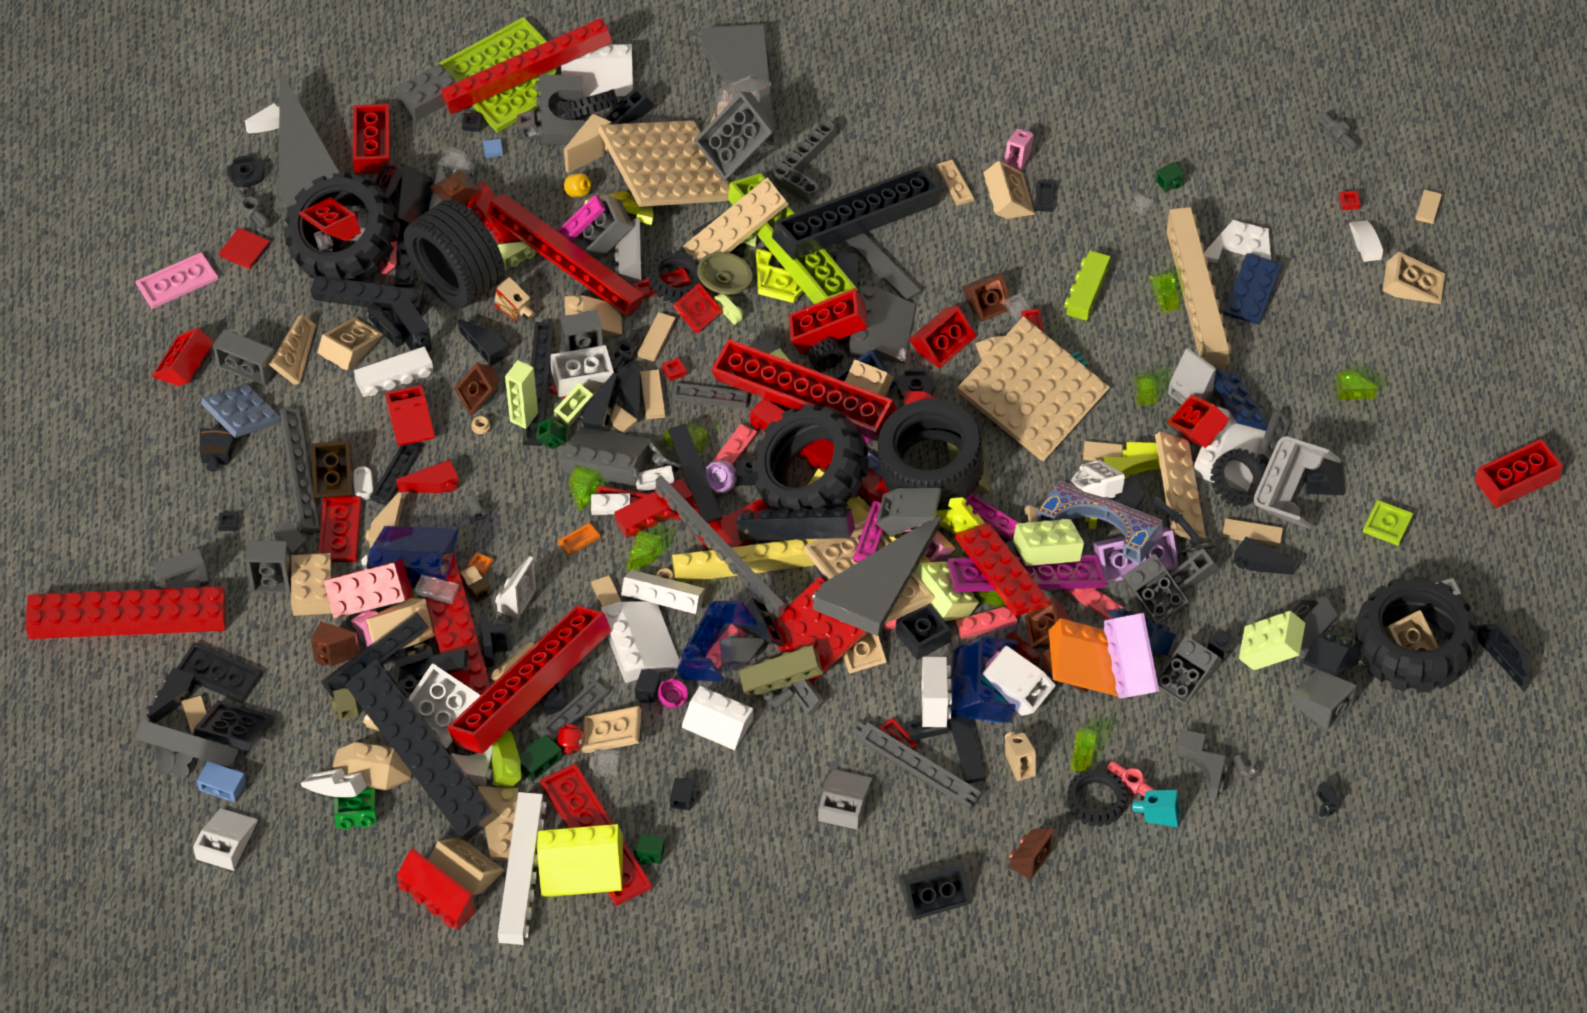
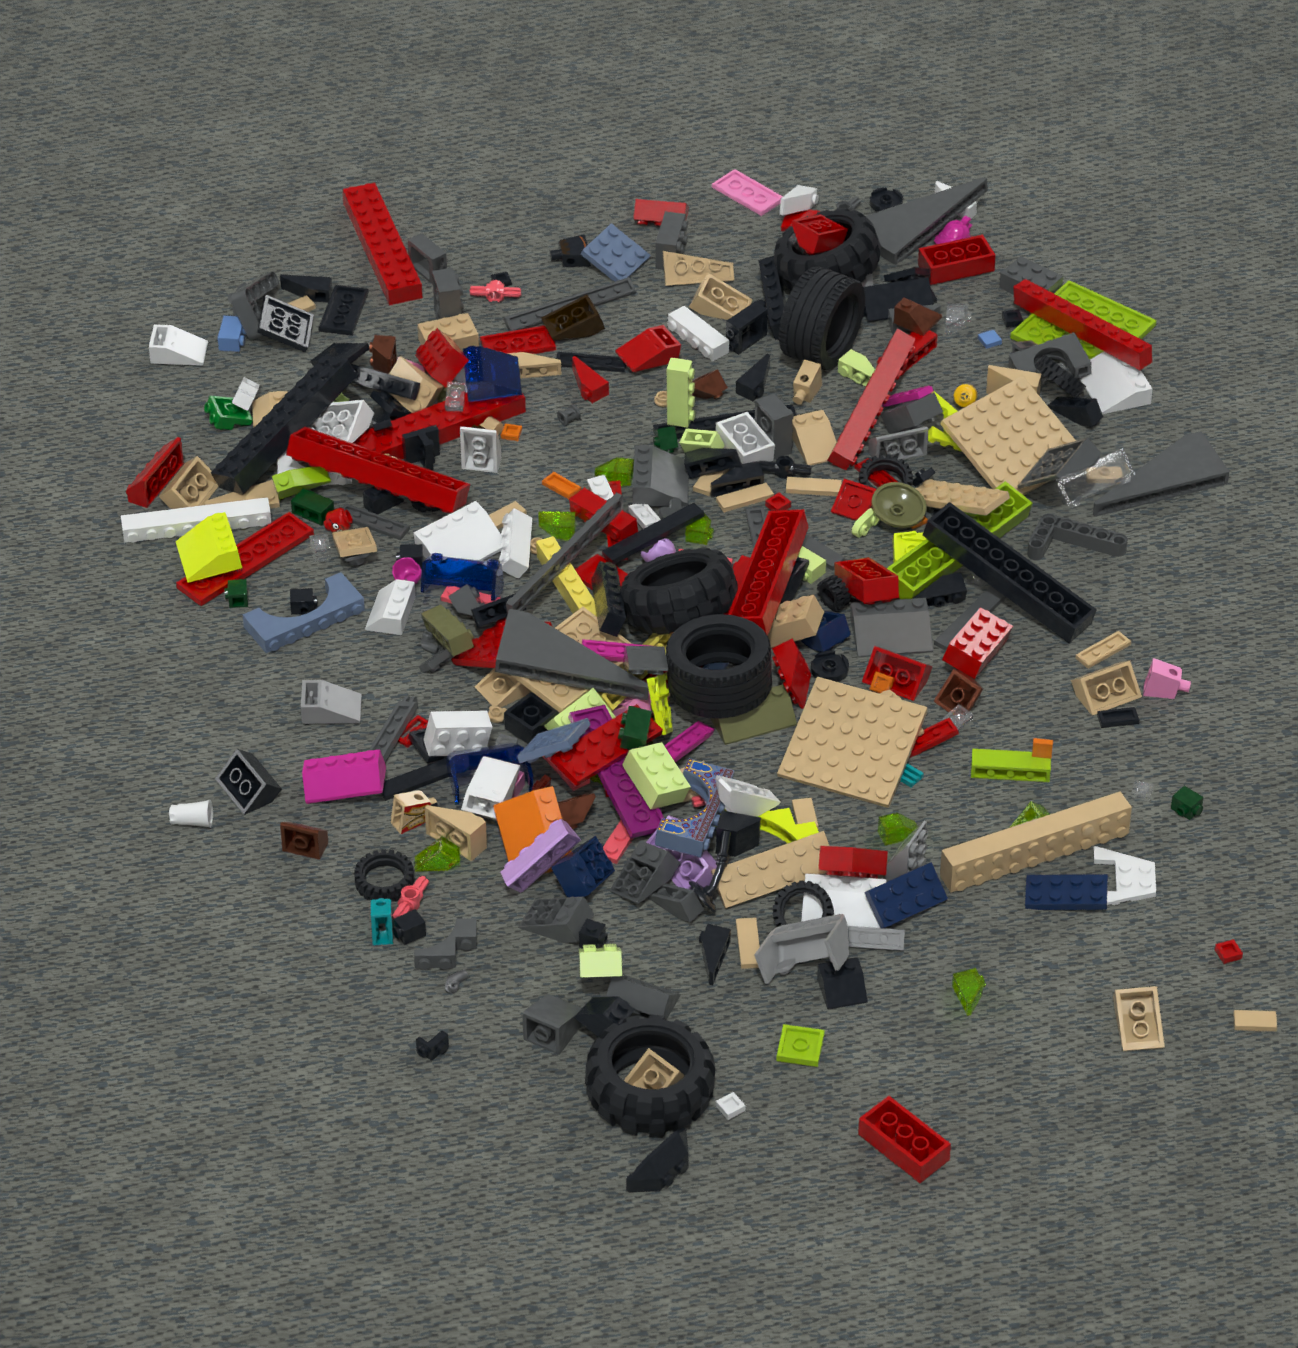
camera: 75 degrees right, 10 degrees down
(217, 236) = (798, 200): none -> white slope
(250, 528) = (495, 291): none -> coral axle
(287, 532) = (486, 310): dark grey slope -> none
(306, 685) = (347, 351): none -> black tile
(330, 131) = (954, 231): none -> dark pink helmet
(363, 482) = (573, 345): white tile -> none
(679, 244) = (922, 475): none -> black plate
(696, 759) = (275, 632): none -> sand blue arch
(898, 667) = (496, 714): none -> tan plate
(933, 263) = (977, 643): none -> brick
(952, 351) = (881, 682): none -> orange tile
(962, 801) = (343, 776): none -> dark pink slope
(967, 944) = (192, 814): none -> white plant
(994, 606) = (553, 740): none -> sand blue plate
(1000, 537) = (635, 728): none -> dark green brick
(1068, 714) = (458, 827): none -> tan slope
(1090, 251) = (1042, 748): none -> orange tile
(1175, 781) = (409, 927): none -> black brick
(1366, 240) = (1176, 971): white slope -> none

